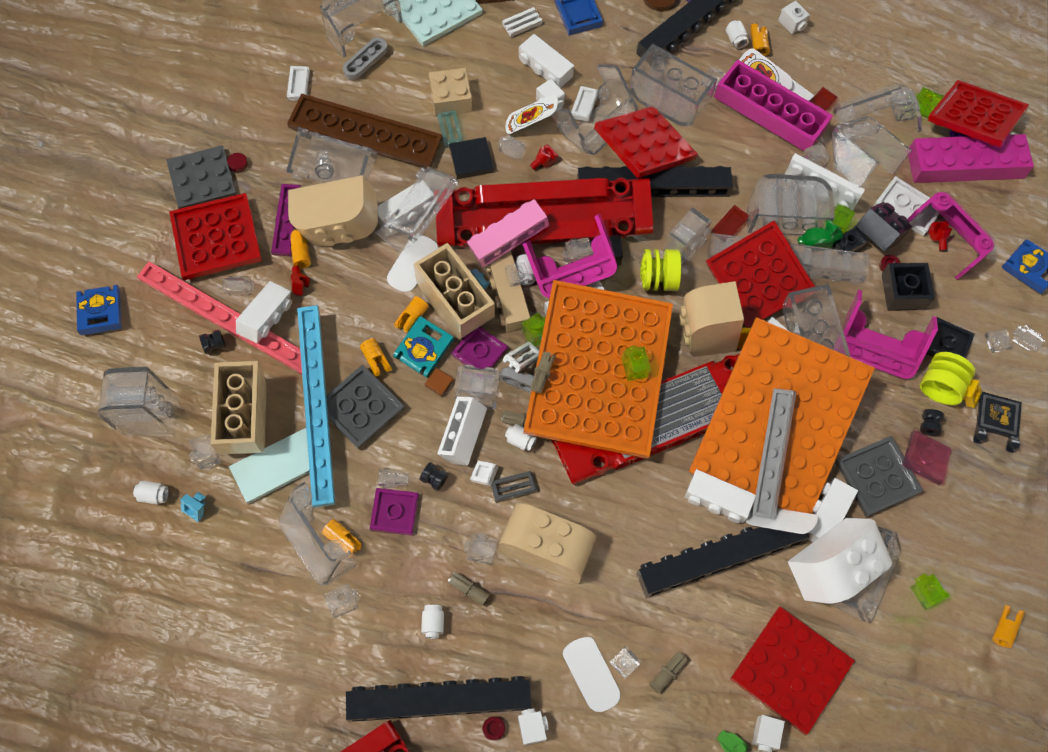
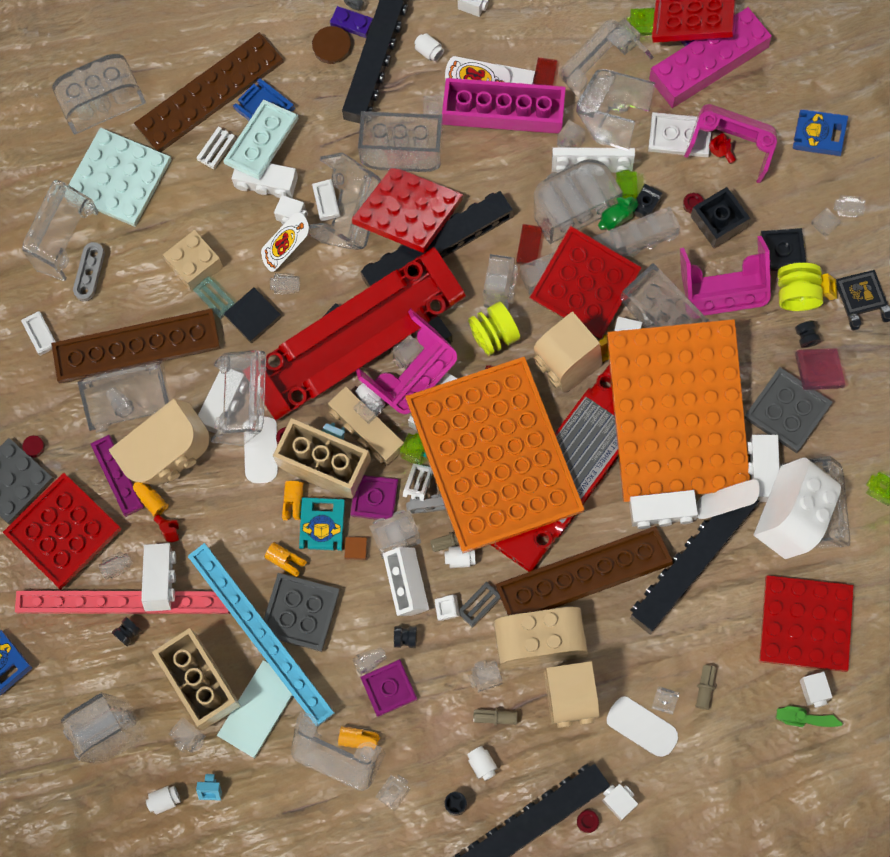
camera: 20 degrees left, 5 degrees up
(387, 638) = (455, 803): none -> black wheel
(508, 233) = (337, 374): bright pink brick -> none
(542, 372) = (448, 489): dark tan axle -> none
(543, 604) = (571, 694): none -> tan brick
(545, 156) = (321, 276): red piece -> none
(560, 30) = (261, 139): none -> light aqua tile
(621, 512) = (585, 573): none -> reddish brown plate
(635, 363) = (524, 432): clear neon green brick -> none
(760, 39) = (453, 41): light orange hinge -> none
(774, 453) = (690, 445): light grey tile -> none
(884, 225) = (669, 171): black brick -> none

